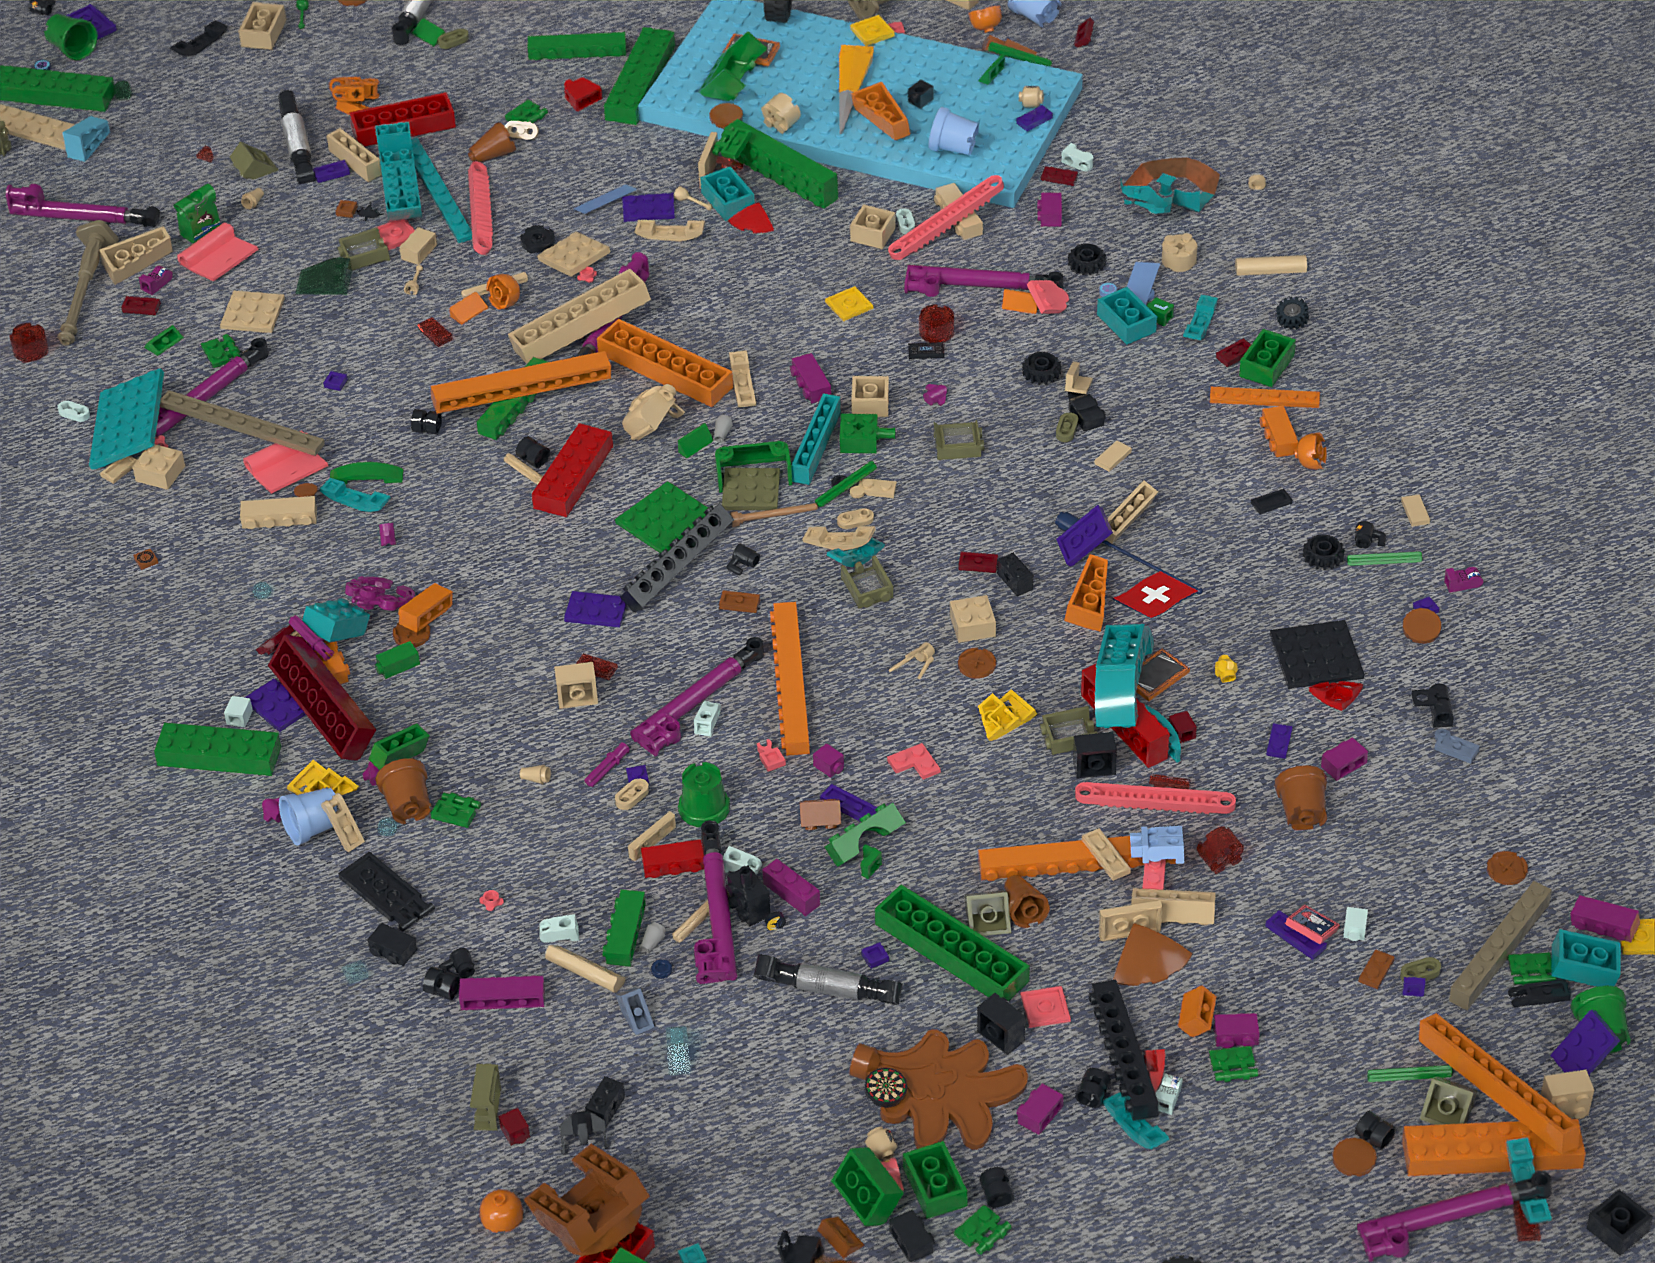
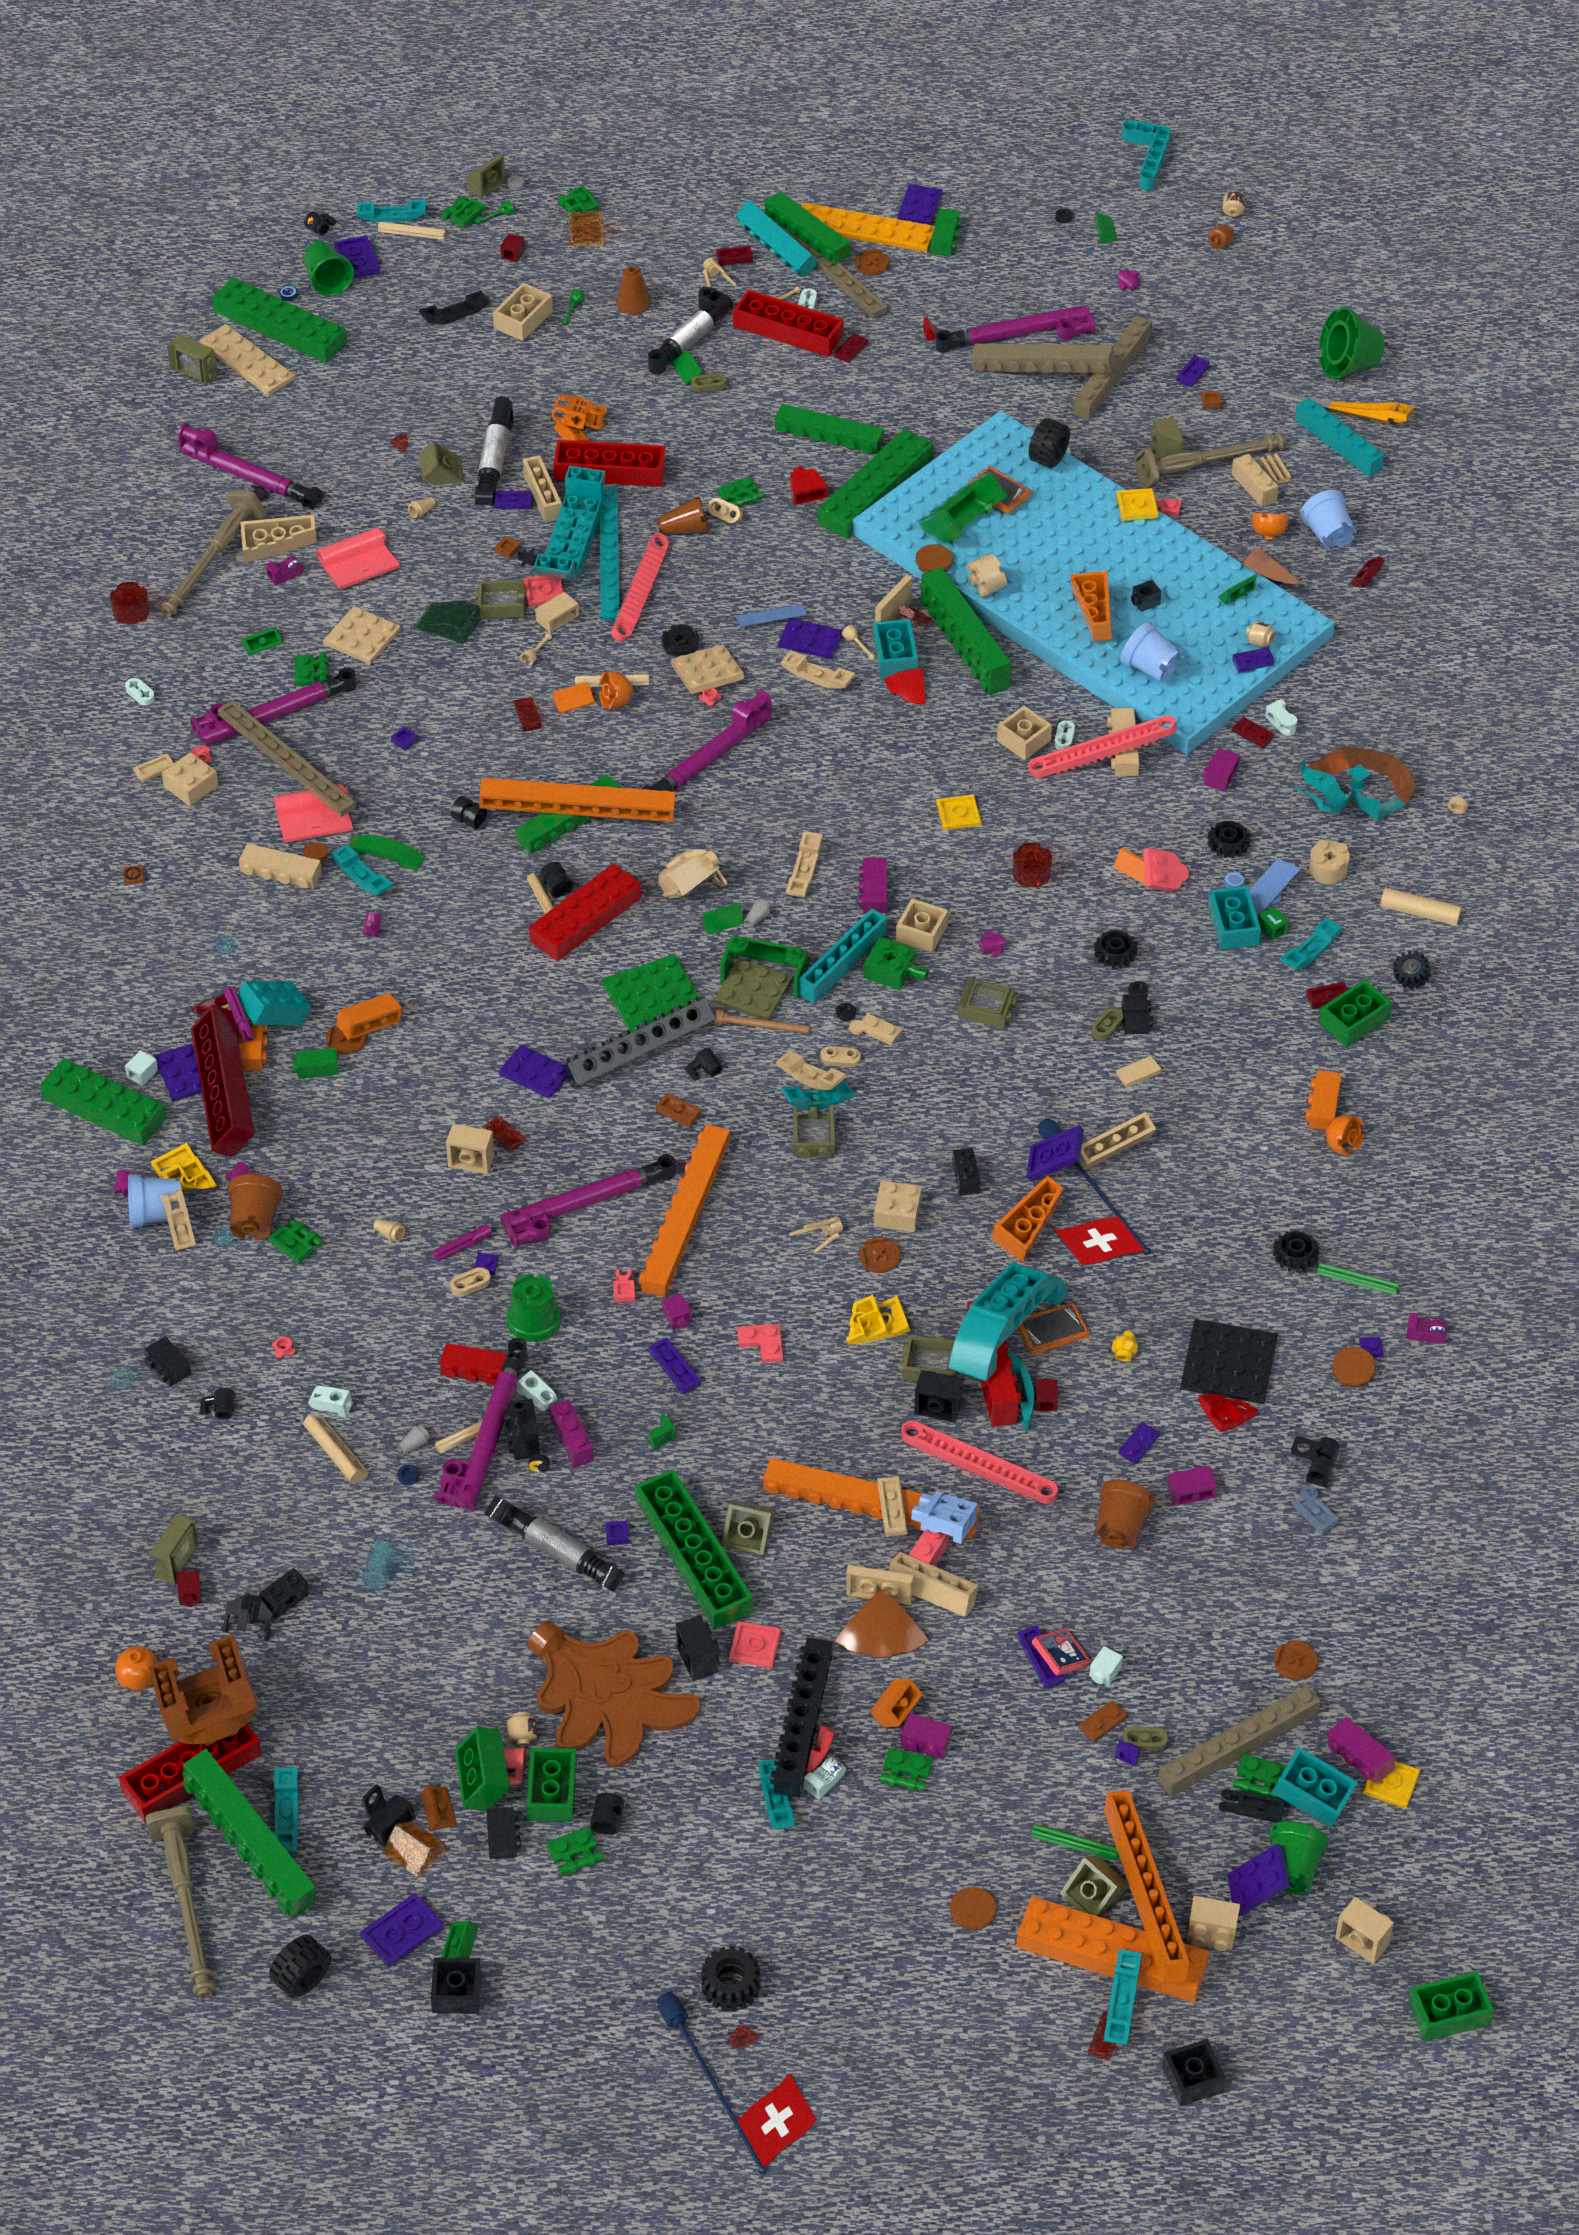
camera: 20 degrees right, 5 degrees up
(85, 137) = (289, 388): medium azure wedge -> none
(123, 90) = (352, 345): clear green wheel -> none
(126, 419) = (181, 718): teal plate -> none
(140, 305) = (257, 594): dark red plate -> none
(197, 213) = (353, 510): green piece -> none
(370, 596) = (324, 989): magenta piece -> none
(385, 891) = (189, 1303): black hinge -> none
(398, 746) = (269, 1157): green brick -> none
(439, 982) = (193, 1417): black wheel -> none
(502, 992) = (245, 1447): magenta brick -> none
(579, 316) = (671, 744): tan brick -> none
(625, 928) = (393, 1420): green brick -> none
(635, 1010) = (360, 1509): sand blue slope -> none
(652, 835) = (467, 1332): tan tile -> none
(665, 362) = (735, 822): orange brick -> none
(706, 718) = (582, 1225): light aqua leg -> none
(736, 142) = (921, 593): green plate -> none
(820, 813) = (638, 1365): brick -> none
(846, 484) = (848, 1015): green axle -> none
(846, 846) = (696, 1396): arch -> none
(853, 67) = (1093, 542): light orange plate -> none
(885, 1087) = (551, 1674): black tile -> none
(926, 350) = (1009, 890): black tile -> none
(929, 278) = (1053, 810): magenta piece -> none
(978, 562) = (936, 1145): dark red plate -> none
(1018, 54) = (1278, 580): green axle -> none
(1025, 902) = (788, 1528): dark orange cone -> none
(1040, 1108) = (691, 1748): magenta brick -> none
(1076, 383) = (1142, 976): tan panel -> none
(1093, 1087) = (753, 1745): black wheel -> none
(1169, 781) = (998, 1447): clear red plate -> none
(1220, 849) = (1011, 1540): clear red brick -> none
(1264, 397) = (1332, 1056): orange plate -> none
(1271, 501) = (1275, 1176): black tile -> none
(1364, 535) = (1351, 1244): black piece -> none
(1373, 1129) = (1005, 1889): black wheel -> none
(1390, 1233) = (954, 1996): magenta piece -> none
(1415, 510) = (1420, 1235): tan tile -> none

